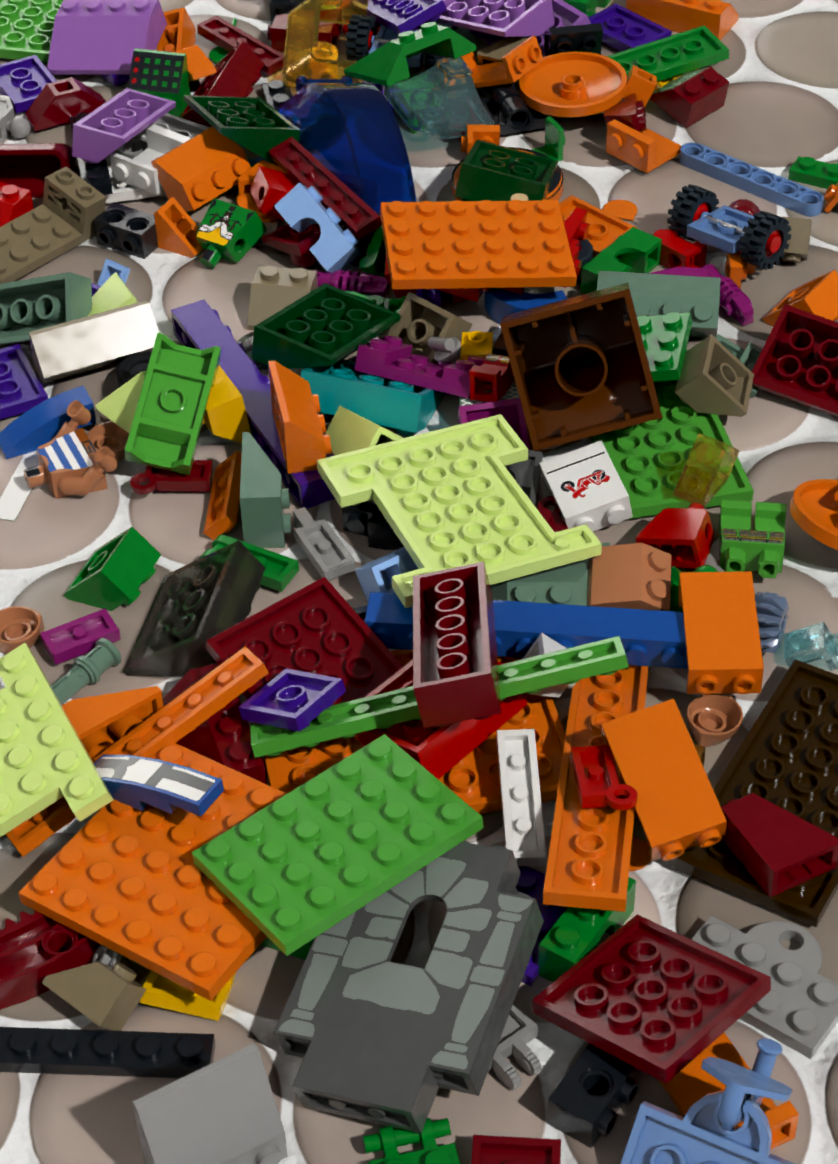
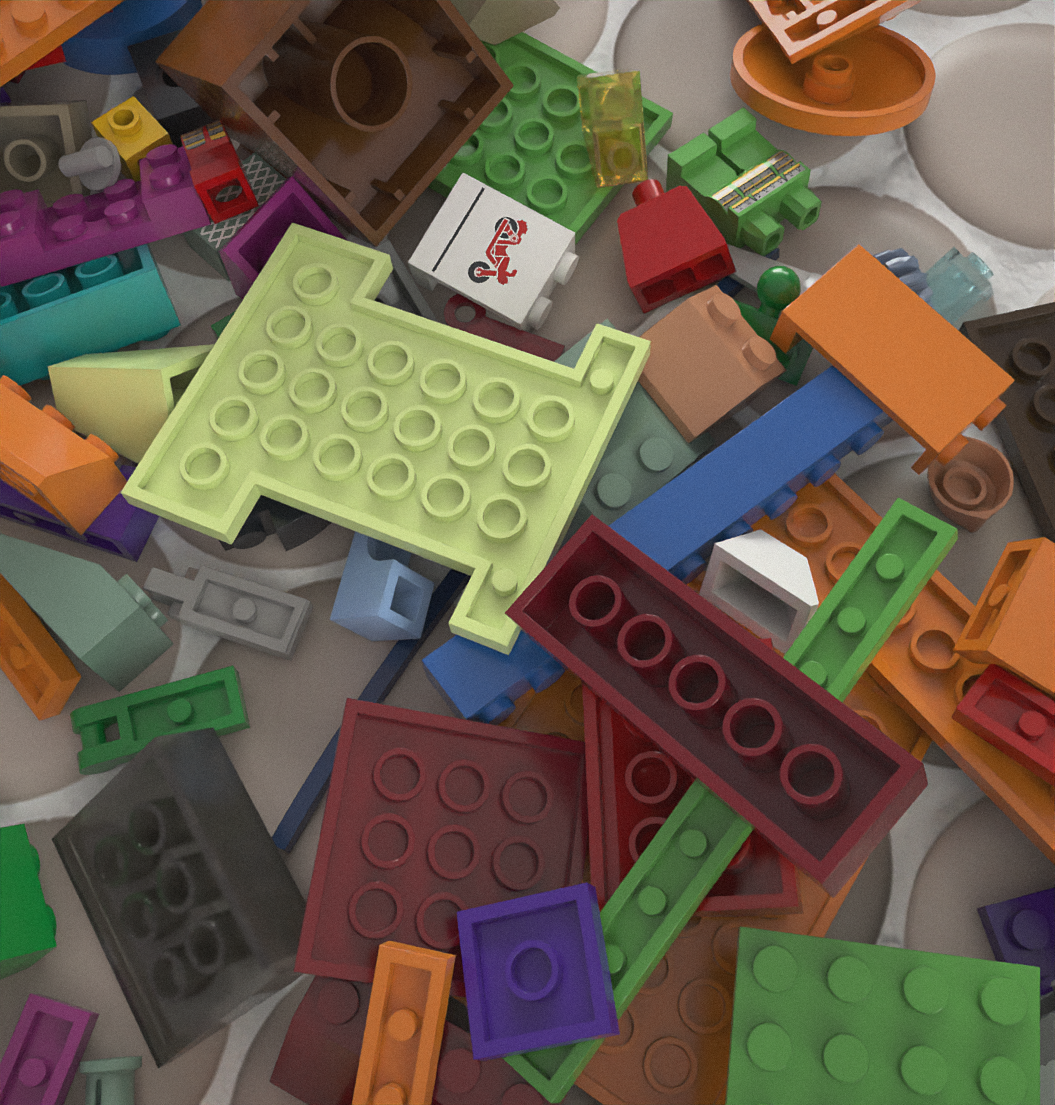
camera: 45 degrees left, 25 degrees up
(521, 796) = (965, 857): white plate -> none

